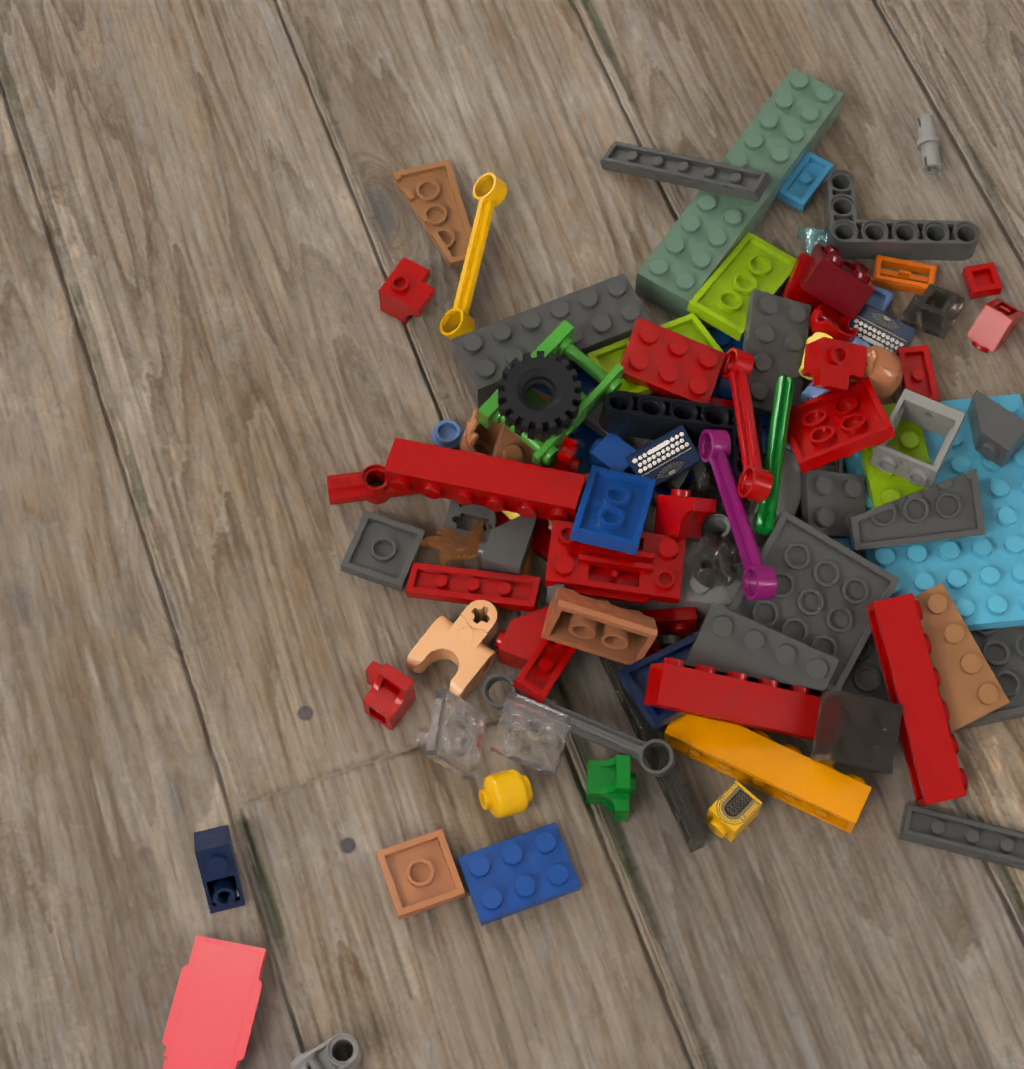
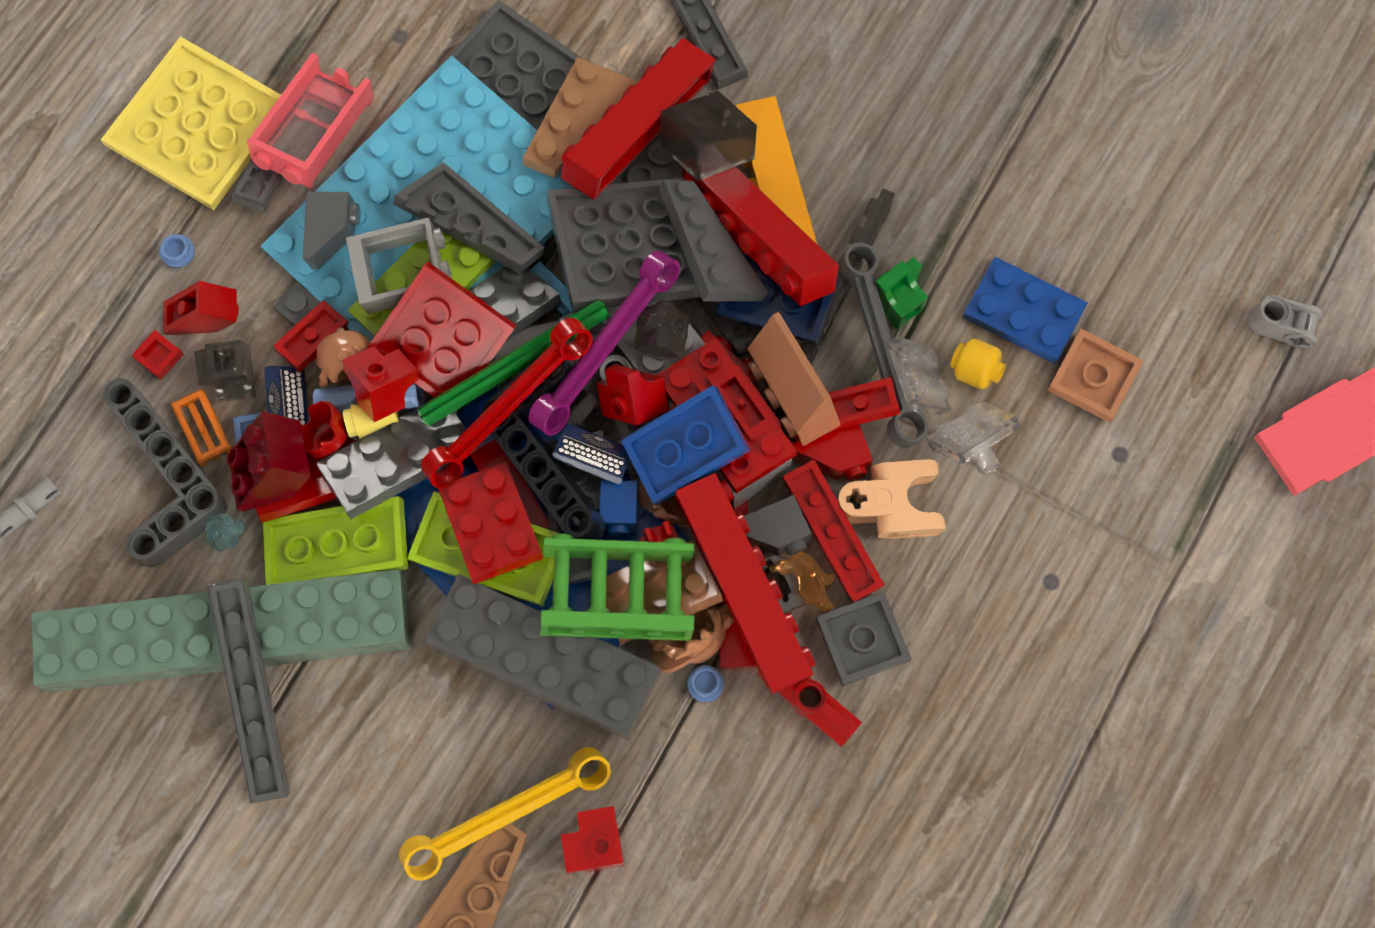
camera: 130 degrees left, 10 degrees up
(219, 868) = (1235, 525): dark blue slope -> none
(389, 694) = (982, 519): red brick -> none
(543, 373) = (646, 551): black tyre -> none
(733, 811) = (839, 193): brick -> none
(805, 181) = (160, 582): dark azure plate -> none
(952, 386) = (296, 304): none -> dark grey plate

